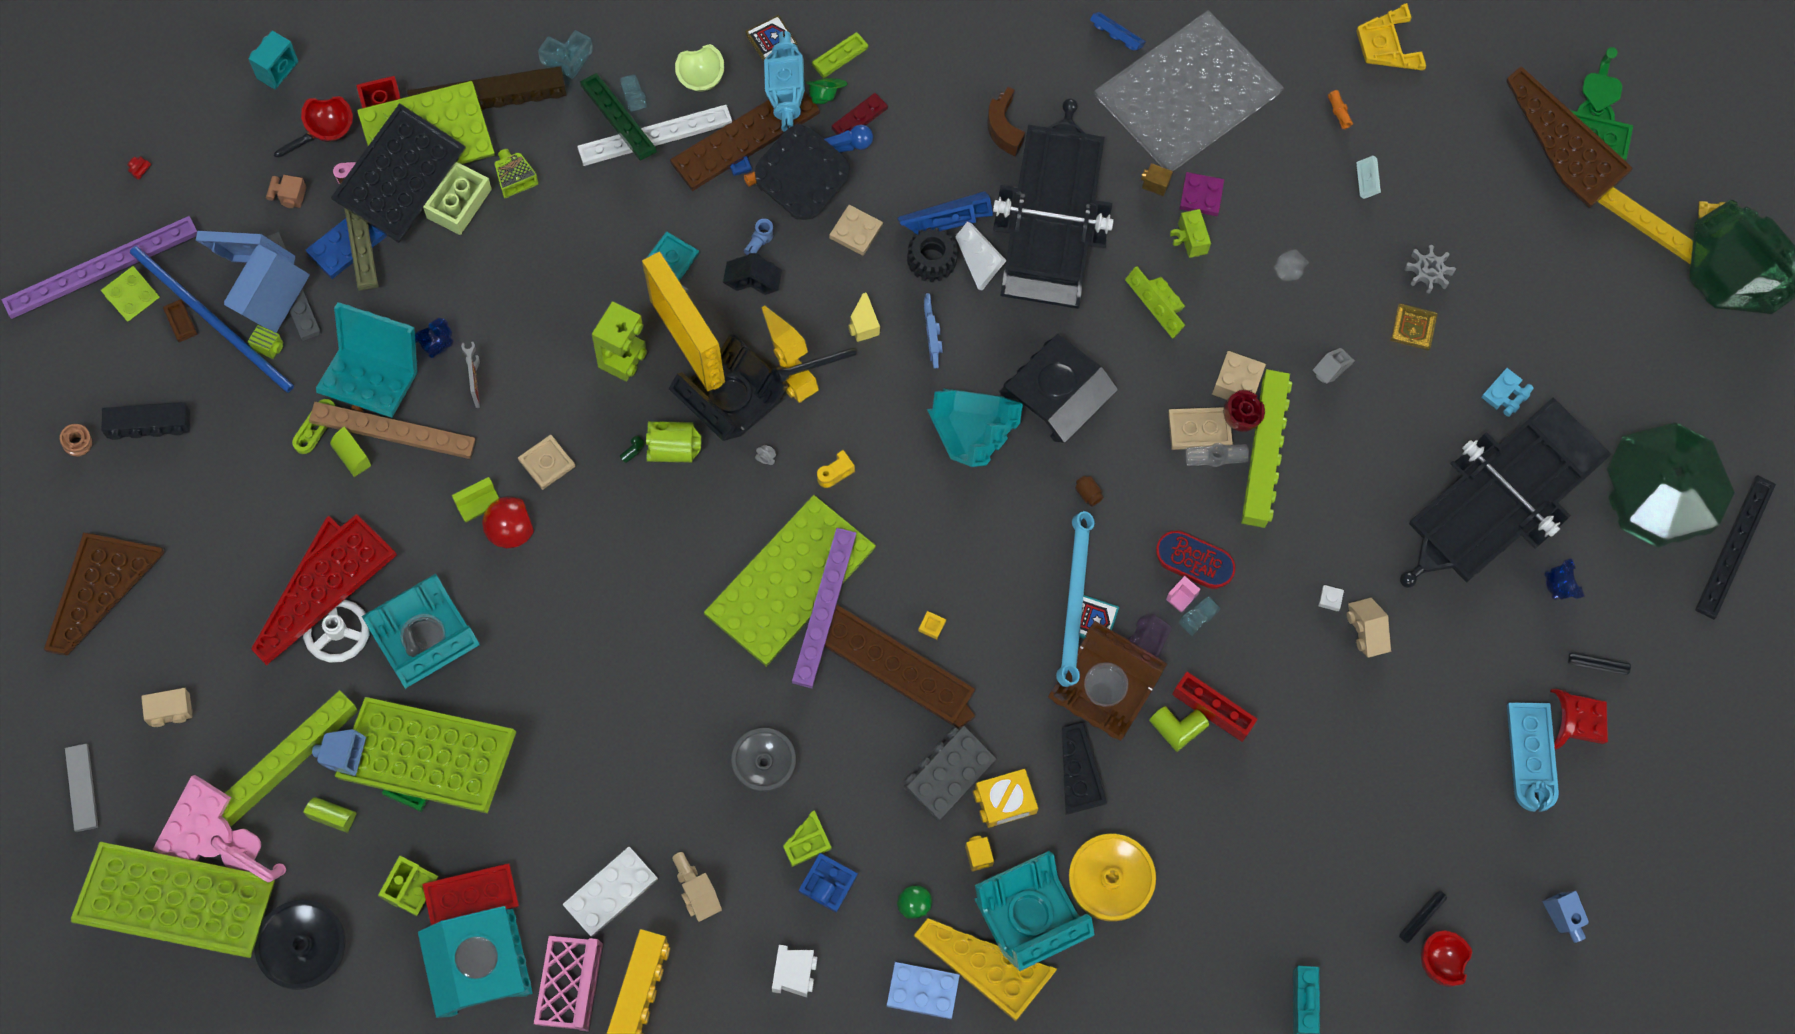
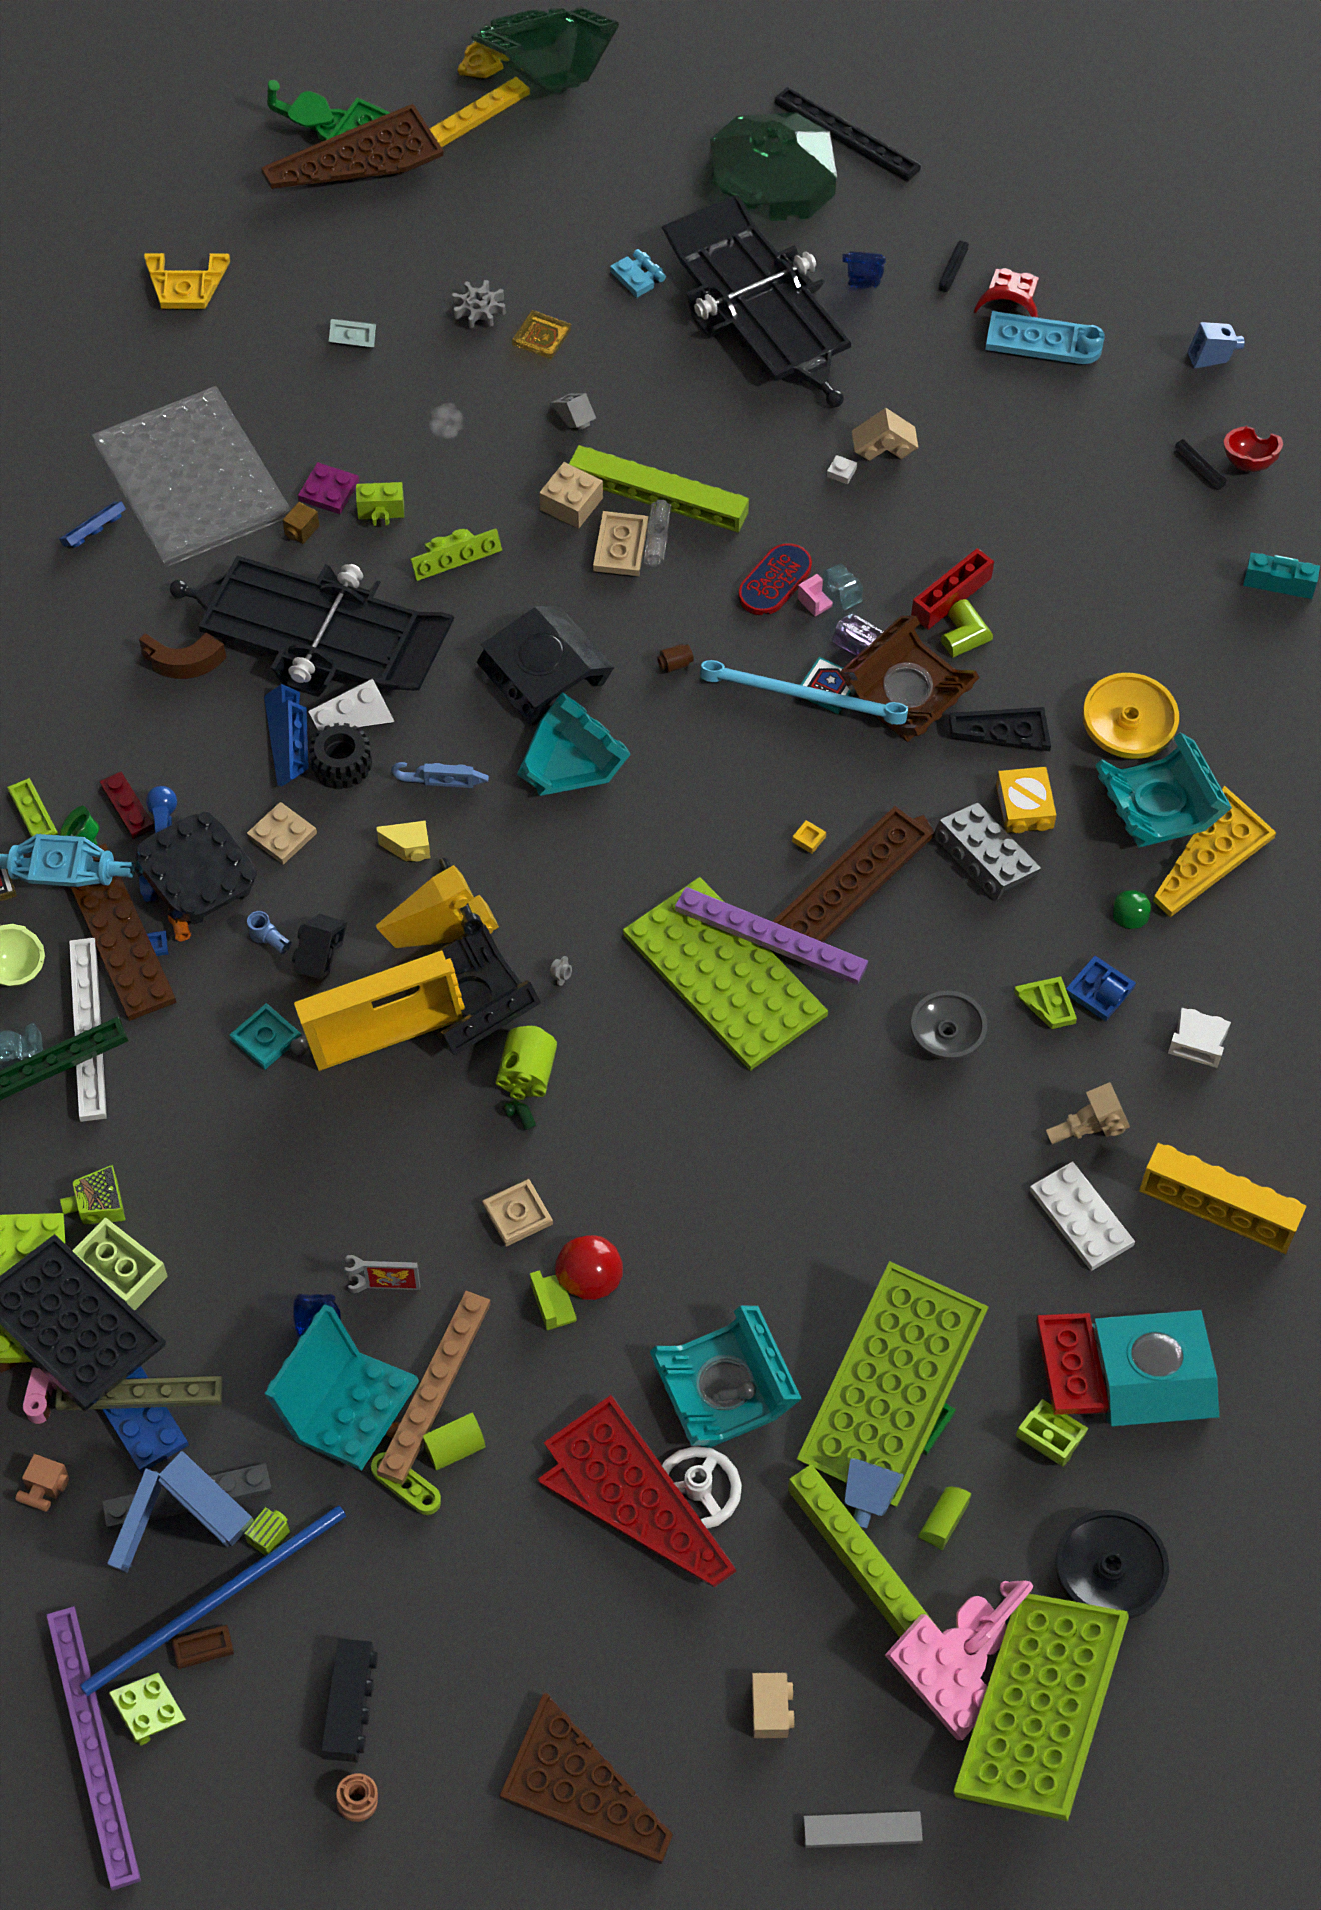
camera: 75 degrees left, 10 degrees down
(586, 988) = (1194, 1251): bright pink fence -> none
(616, 341) = (381, 1084): lime plate -> none
(836, 471) = (597, 899): yellow leg -> none
(923, 990) = (1232, 918): light blue plate -> none
(979, 853) = (1085, 836): yellow brick -> none
(1243, 411) = (616, 493): dark red cylinder -> none
(1340, 109) = (258, 342): orange pin -> none

